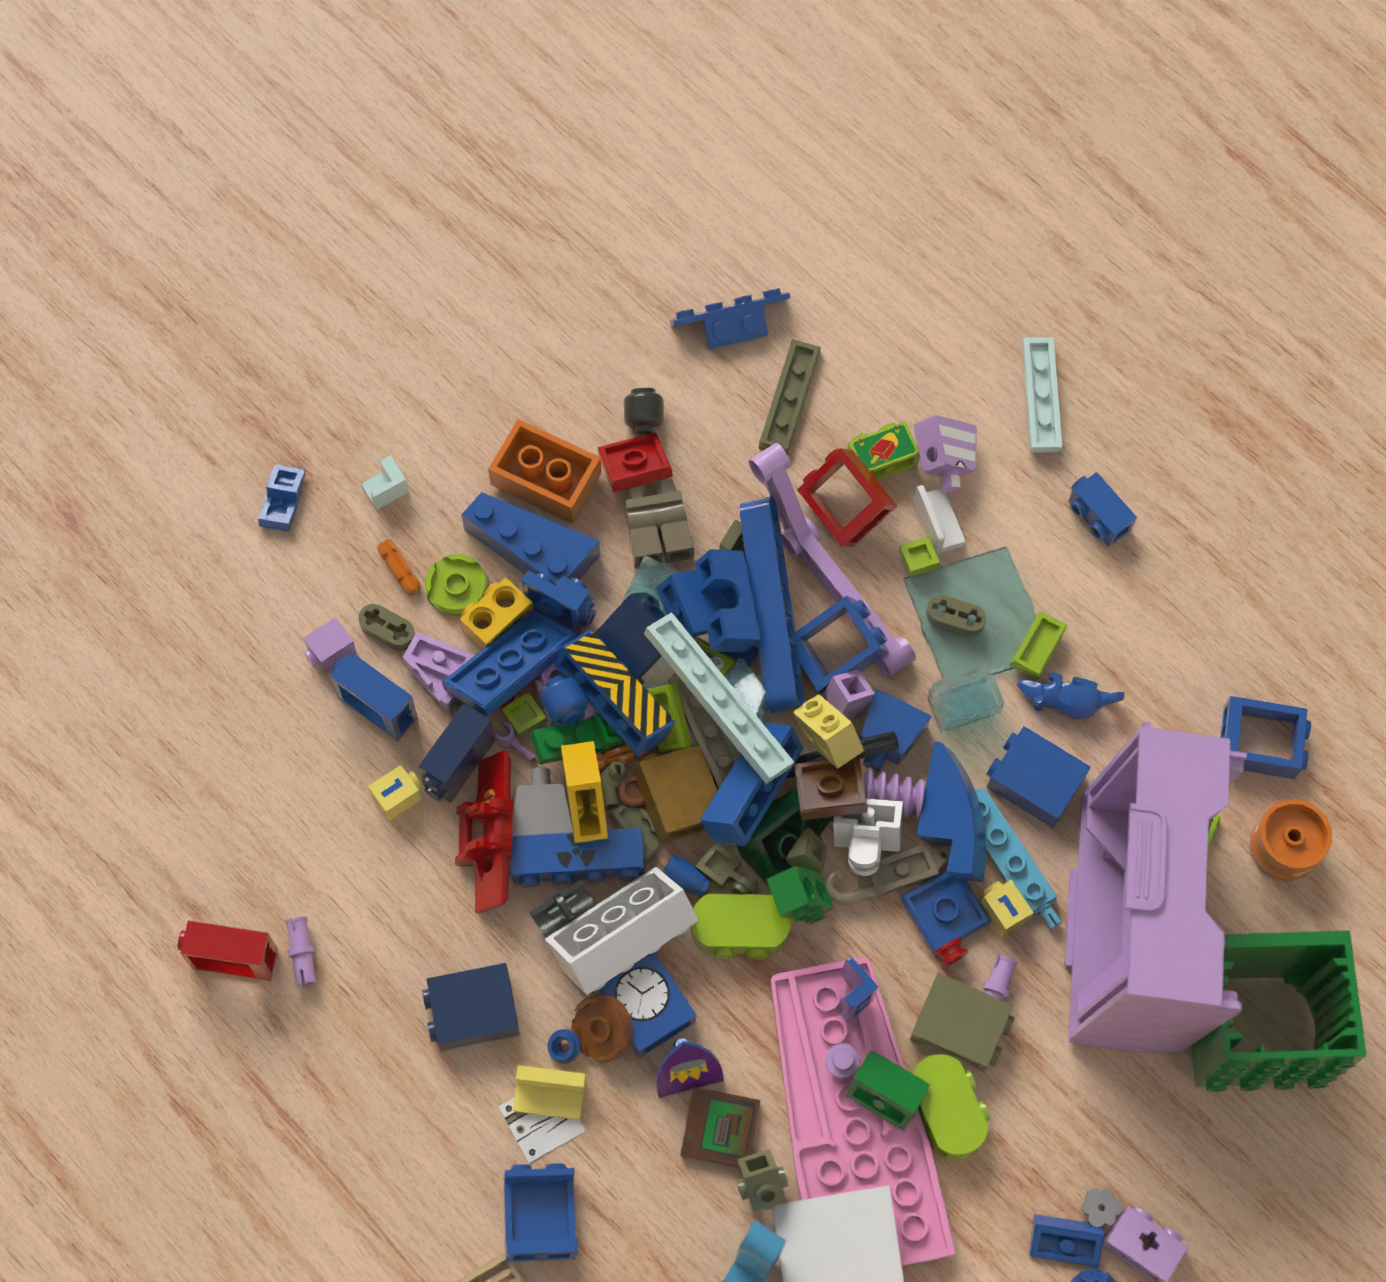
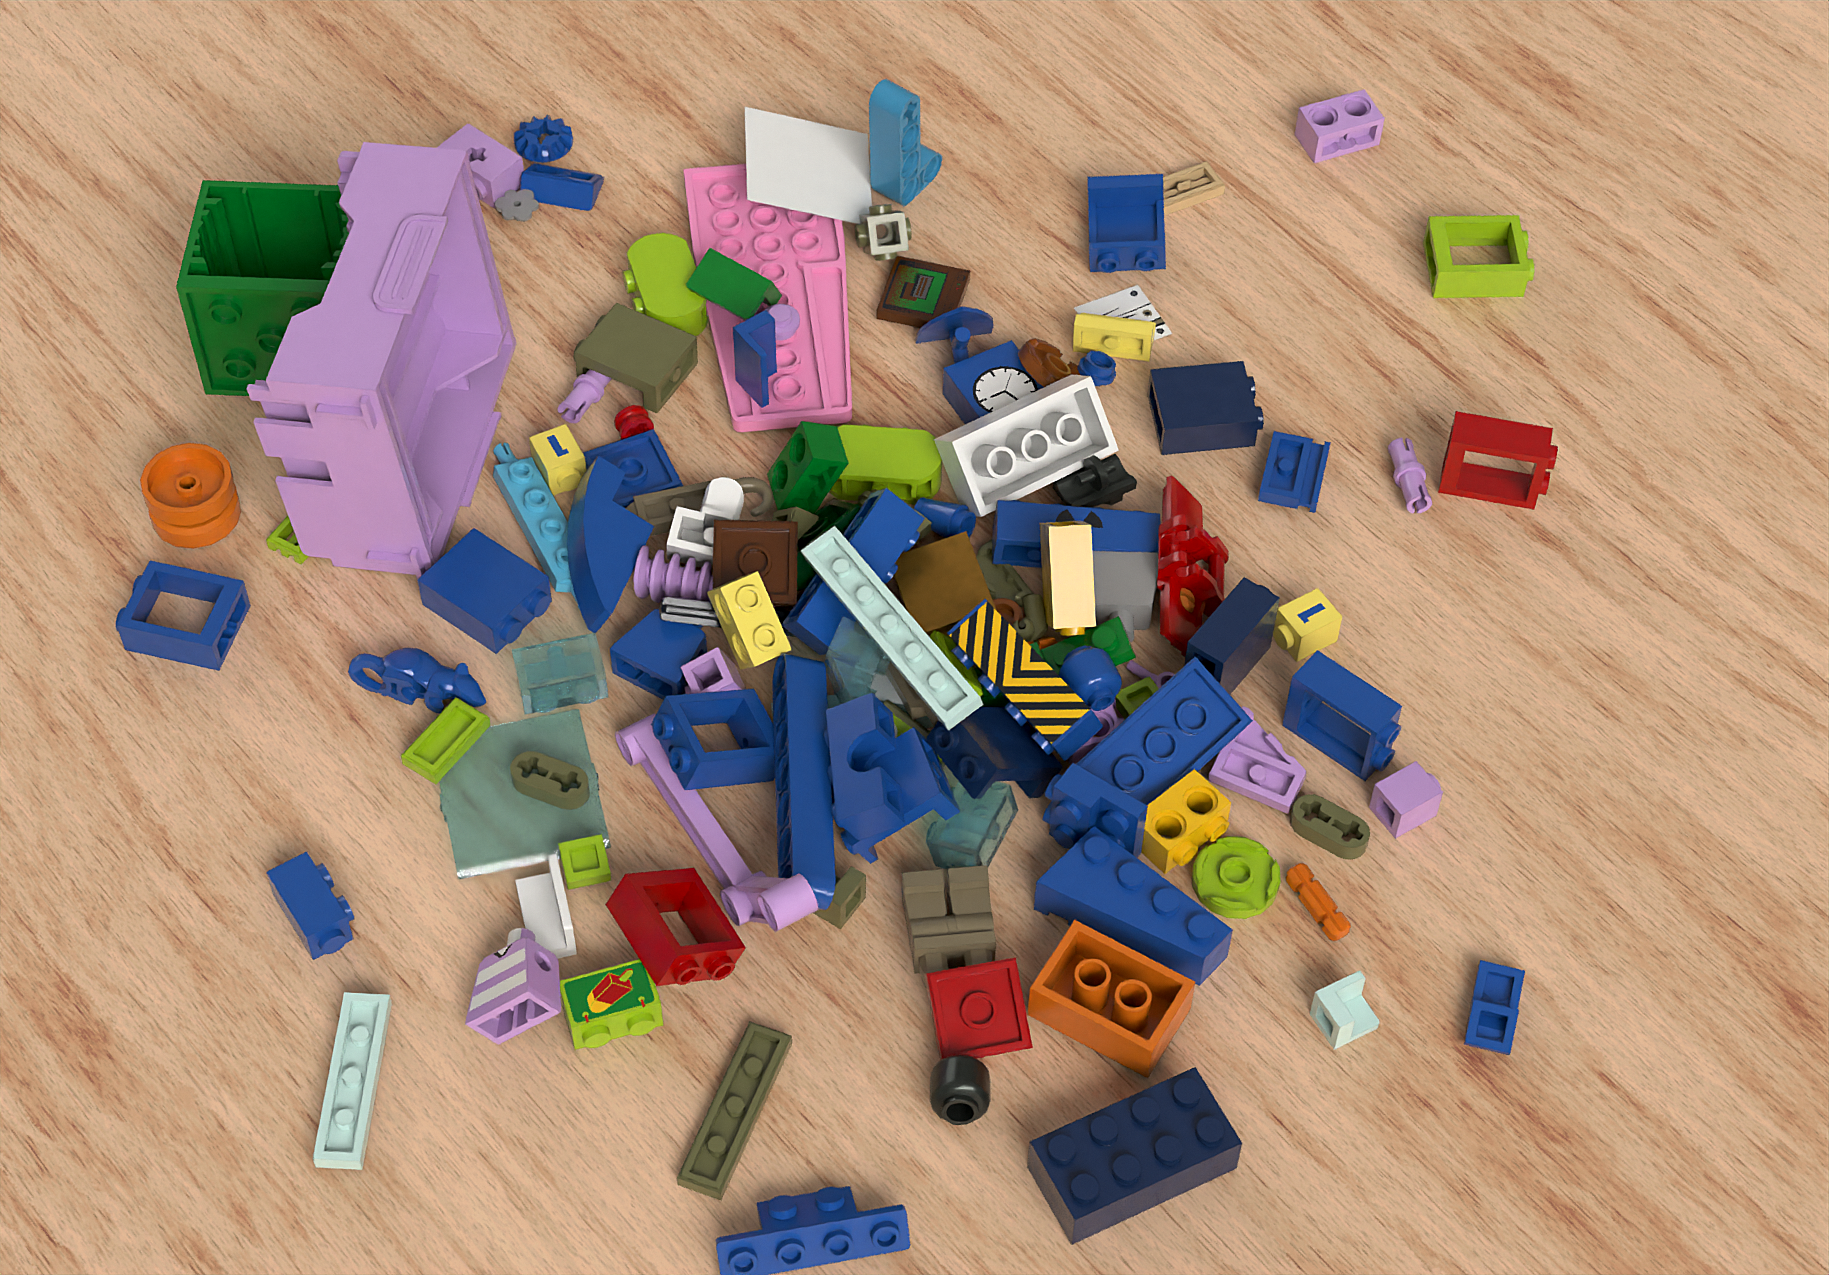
camera: 175 degrees left, 15 degrees down
(252, 1207) = (1478, 279): none -> lime window
(397, 947) = (1293, 471): none -> blue plate
(528, 373) = (1133, 1155): none -> dark blue brick

